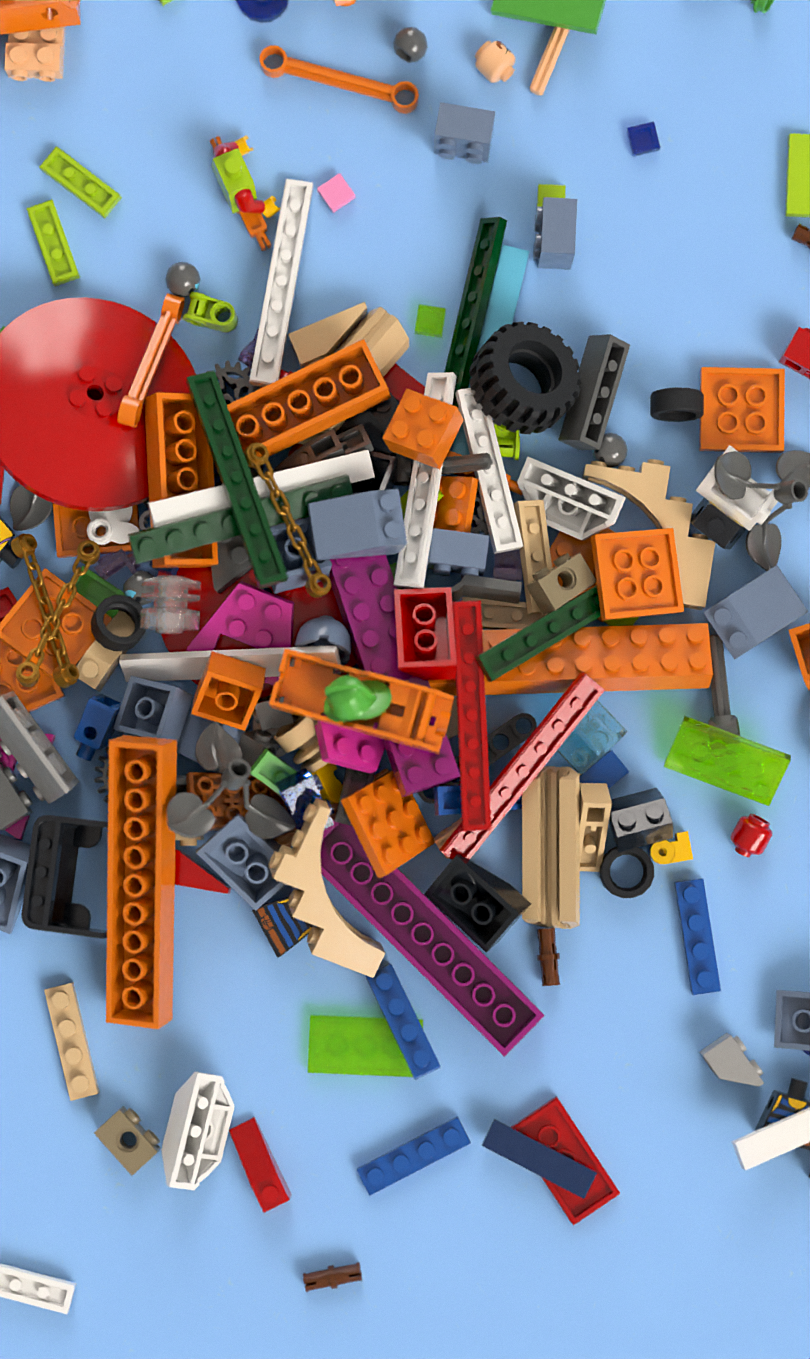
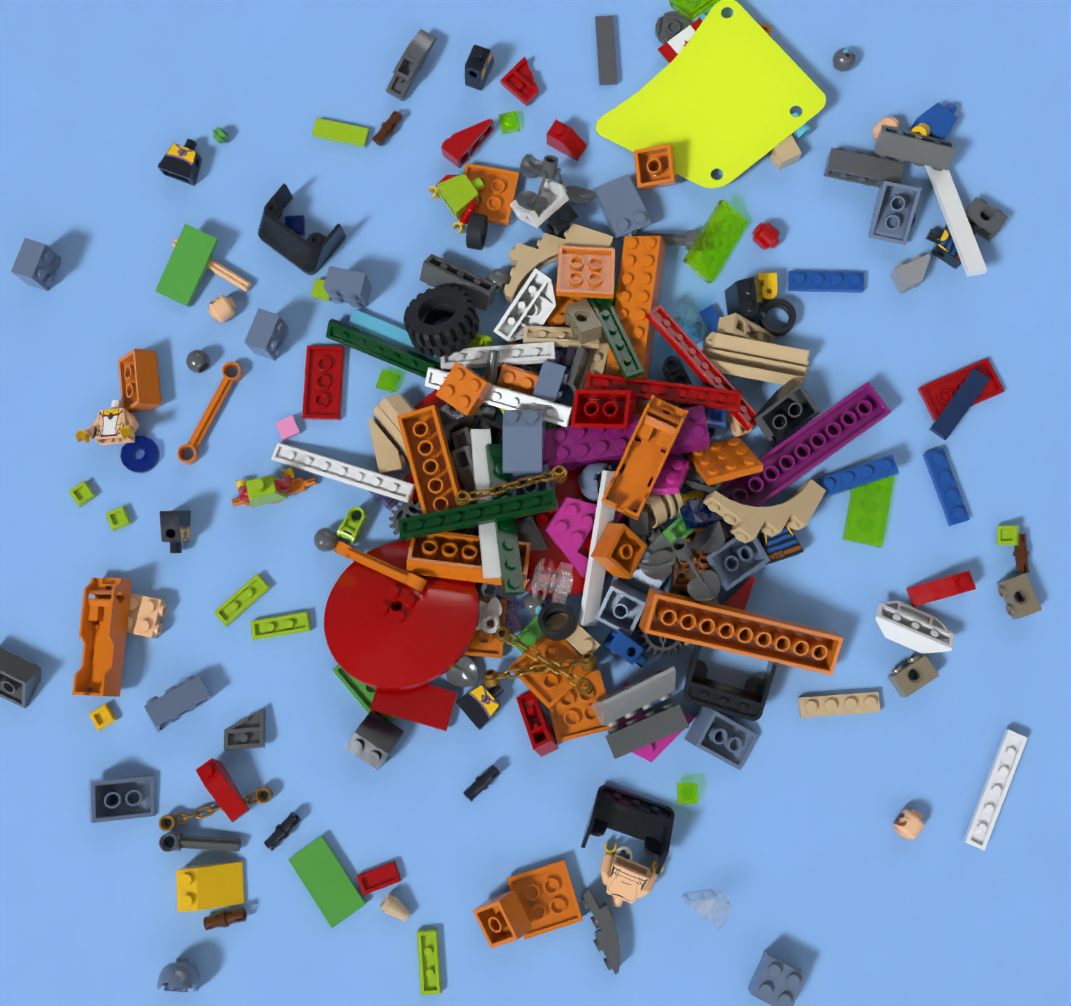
camera: 75 degrees left, 5 degrees down
(162, 67) = (175, 528): none -> black torso
(257, 1294) = (1028, 601): none -> dark tan brick
(355, 699) = (644, 458): bright green piece -> none
(355, 1254) = (1008, 535): none -> lime tile
(412, 229) = (323, 382): none -> red tile
(548, 957) = (826, 376): reddish brown pin -> none
(597, 168) = (306, 254): none -> black windscreen
(725, 368) = (459, 196): none -> lime torso

